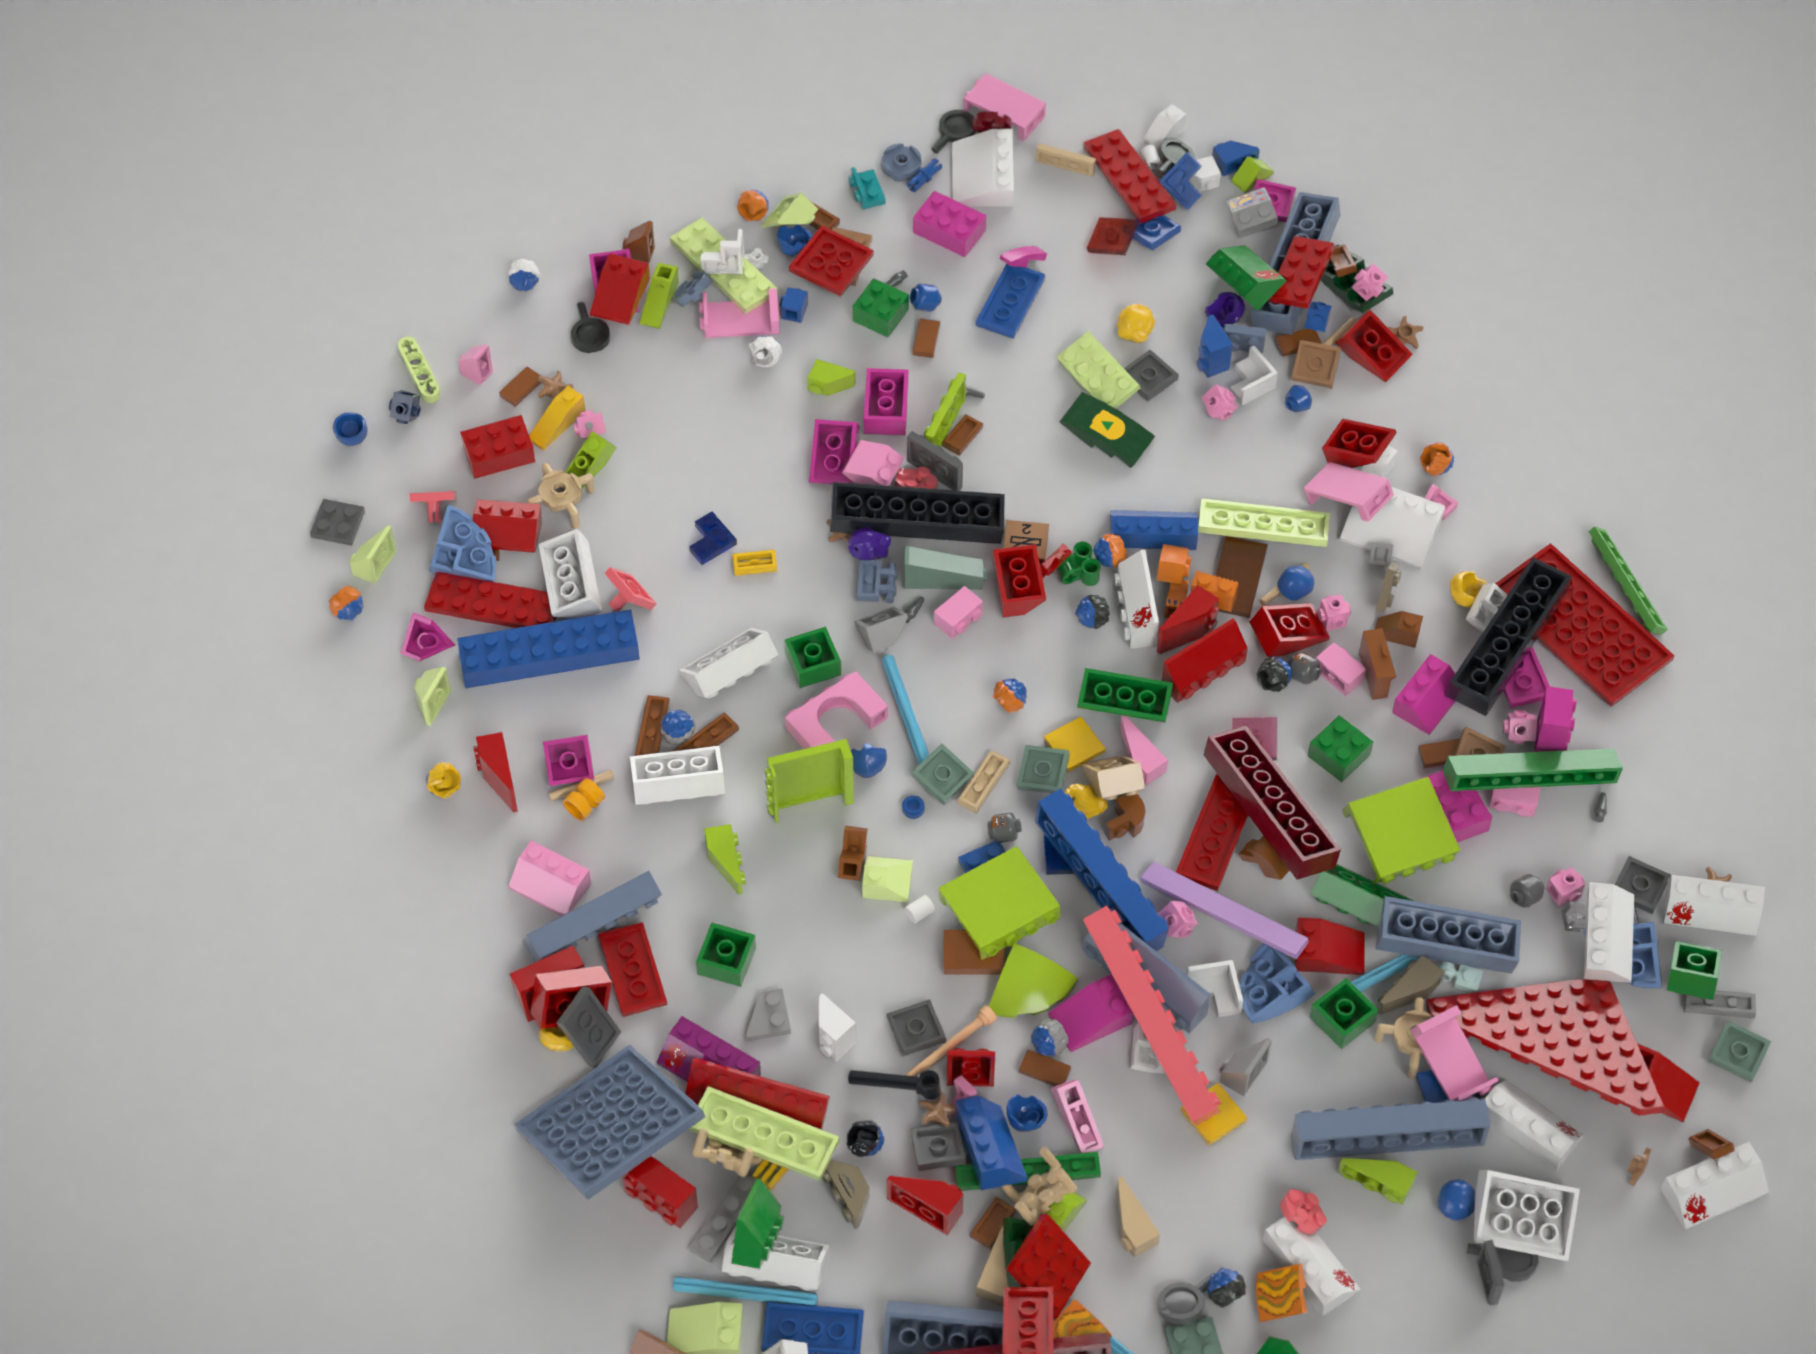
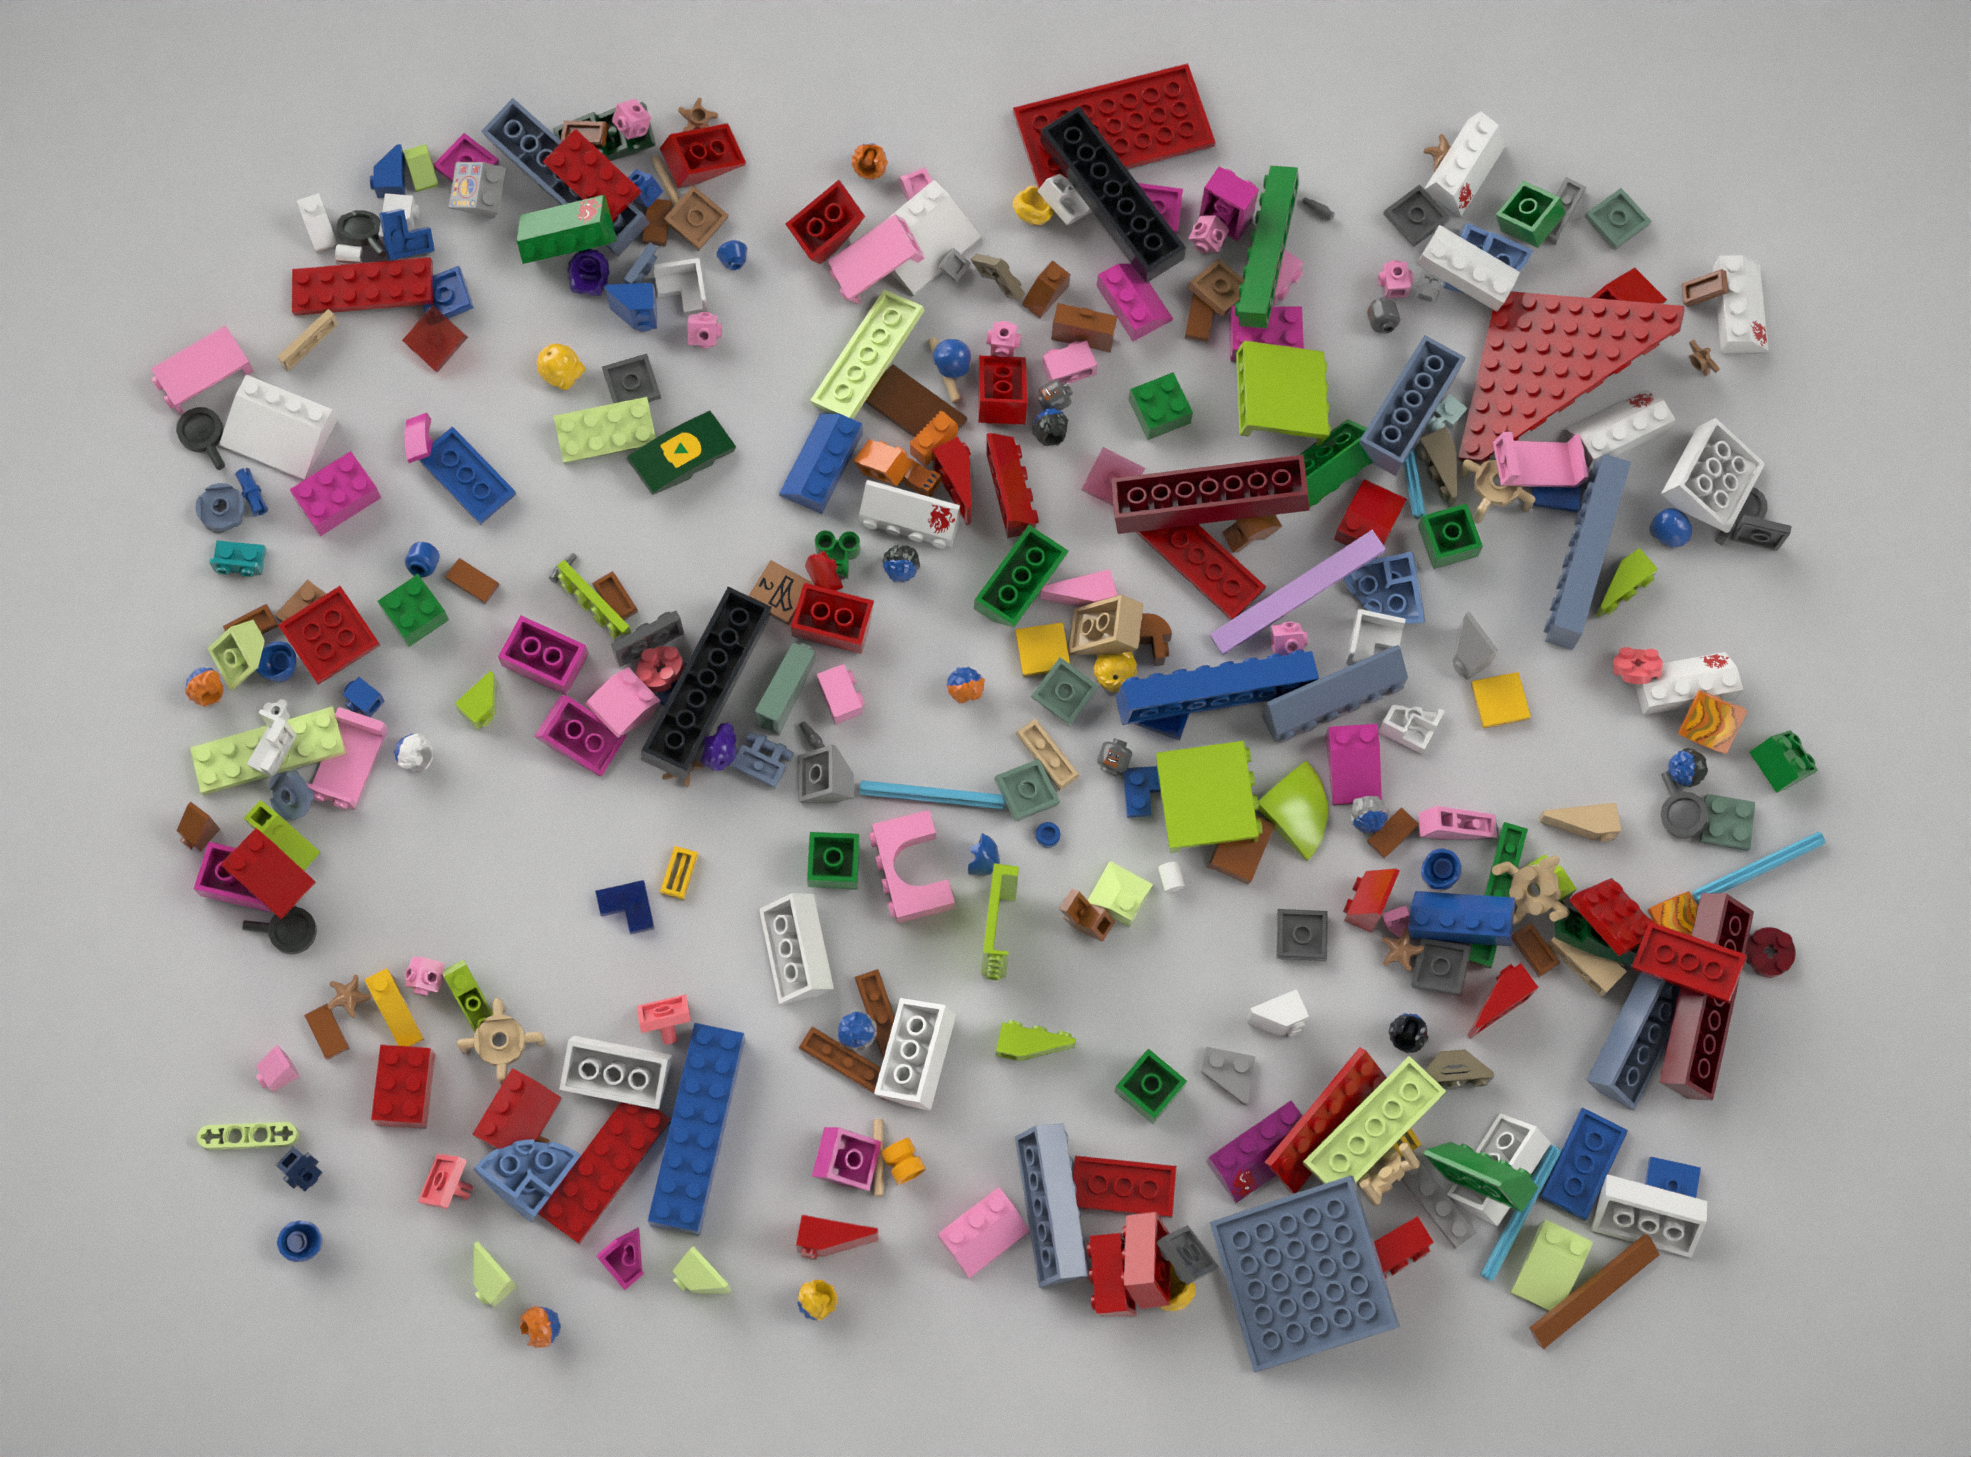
camera: 70 degrees left, 15 degrees up
(337, 522) = (416, 1299): dark grey plate -> none
(523, 274) = (178, 971): piece -> none
(897, 278) = (379, 580): dark grey piece -> none
(899, 1082) = (1353, 978): black axle -> none
(984, 1017) = (1317, 866): light nougat piece -> none
(990, 120) = (224, 392): dark red plate -> none
(1110, 550) = (836, 515): piece -> none
(1152, 1016) = (1394, 708): coral brick -> none
(1630, 585) = (1094, 62): bright green plate -> none

